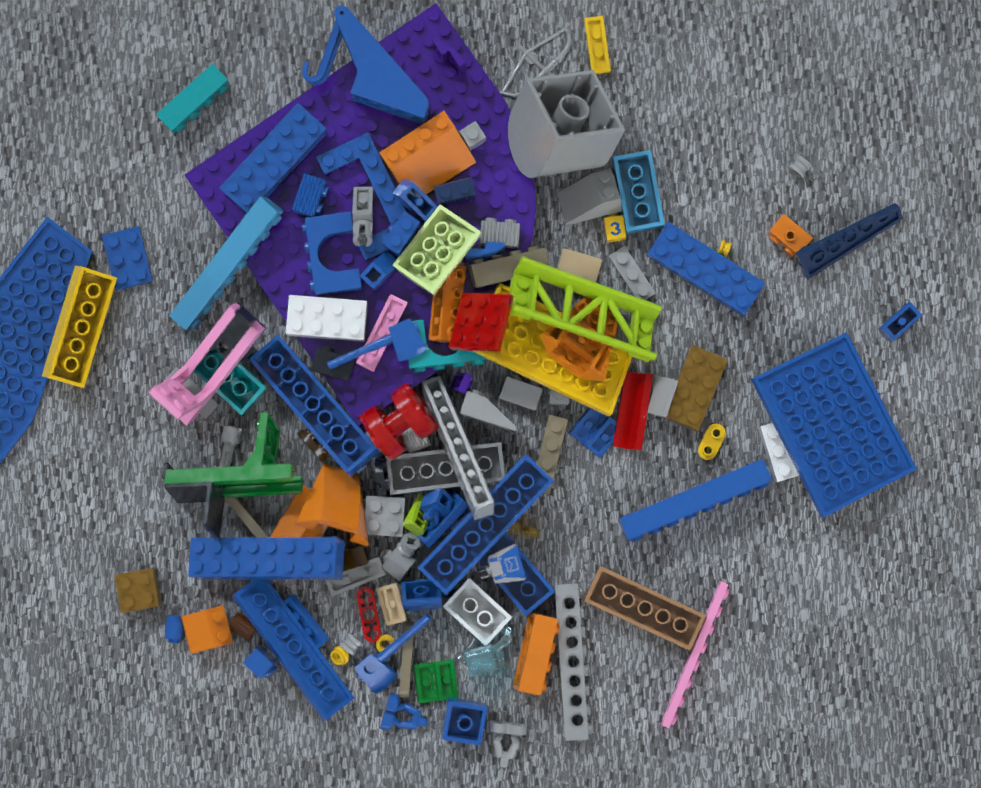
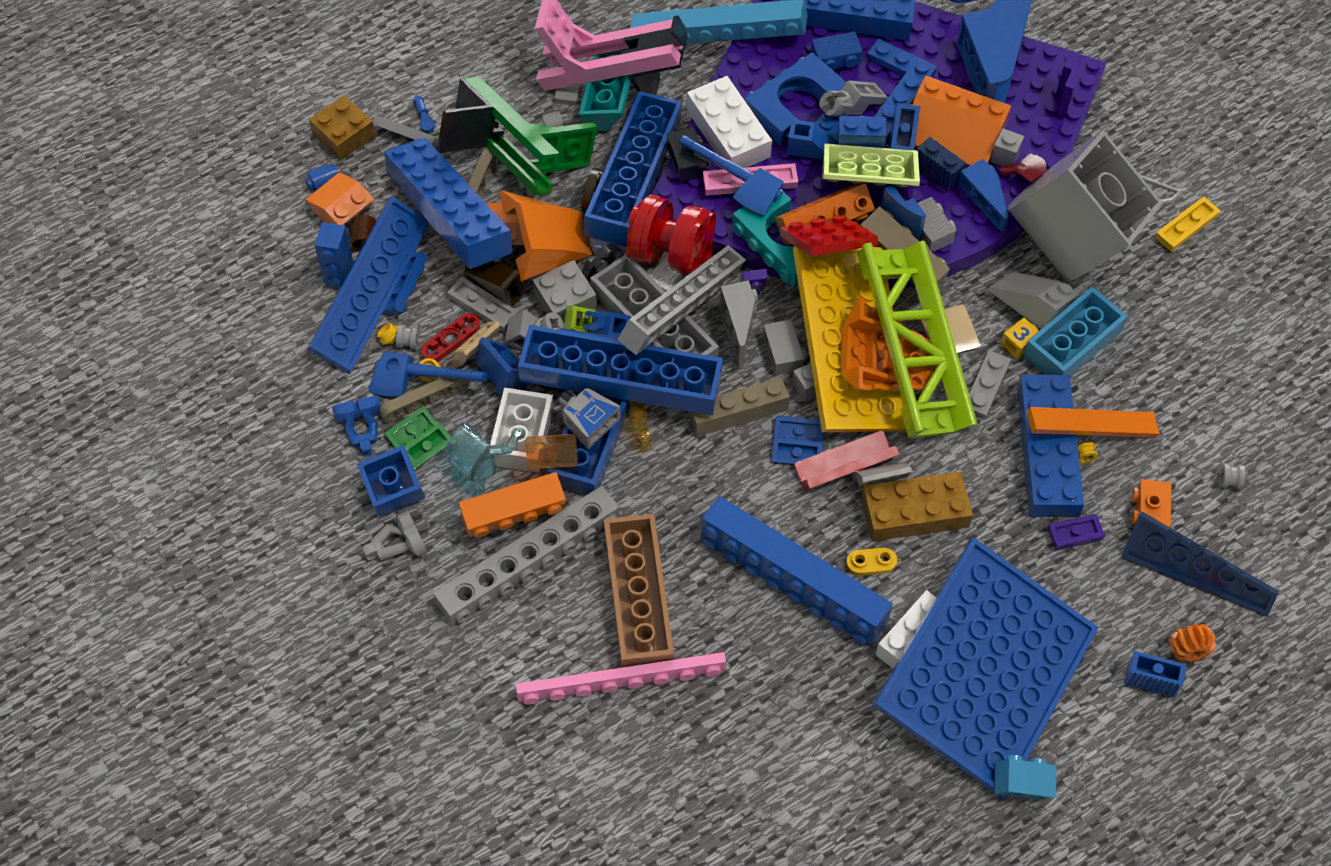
camera: 55 degrees right, 25 degrees down
(166, 523) = (426, 122): none -> blue piece
(170, 544) = (404, 130): none -> light grey tile
(494, 175) = (984, 189): none -> blue slope
(497, 132) = (1029, 168): none -> dark red hand
(514, 605) = (551, 451): none -> clear orange panel
(712, 233) = (1092, 422): none -> orange tile
(774, 297) = (1075, 532): none -> dark purple plate
(895, 283) = (1192, 643): none -> orange gear
(916, 452) = (1025, 778): none -> dark azure brick

